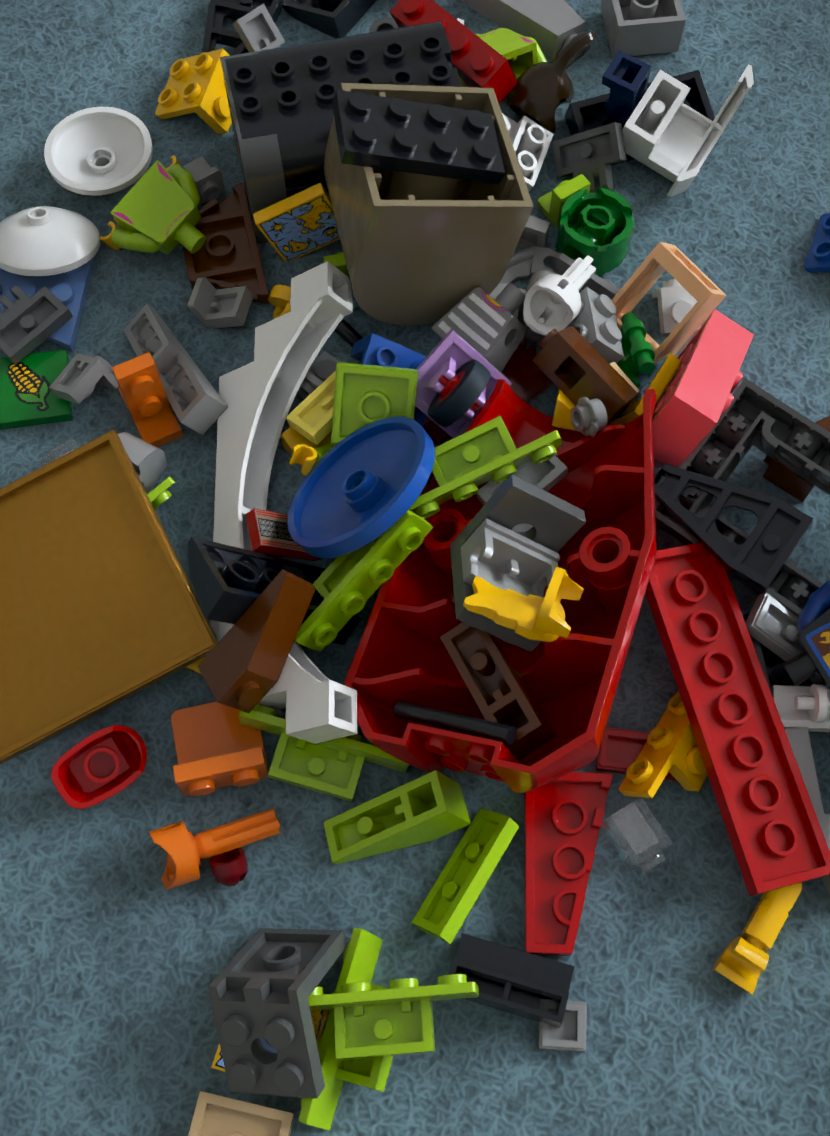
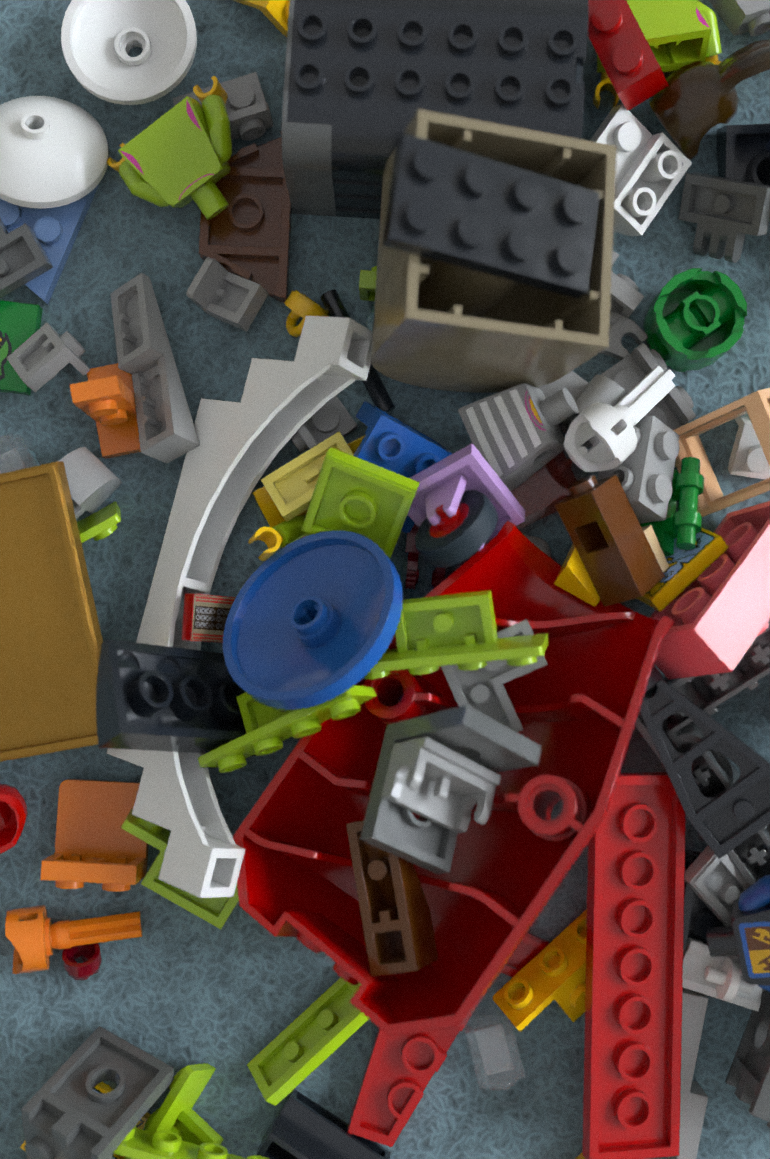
camera: 15 degrees right, 20 degrees up
(258, 644) = (150, 777): reddish brown slope -> none
(299, 223) = (337, 219): tile -> none
(398, 819) = (257, 965): lime slope -> none
(455, 722) = (334, 925): black bar -> none
(528, 615) = (439, 862): yellow hair -> none
(552, 202) = (670, 258): lime bracket -> none
(589, 416) = (595, 599): light grey plate -> none

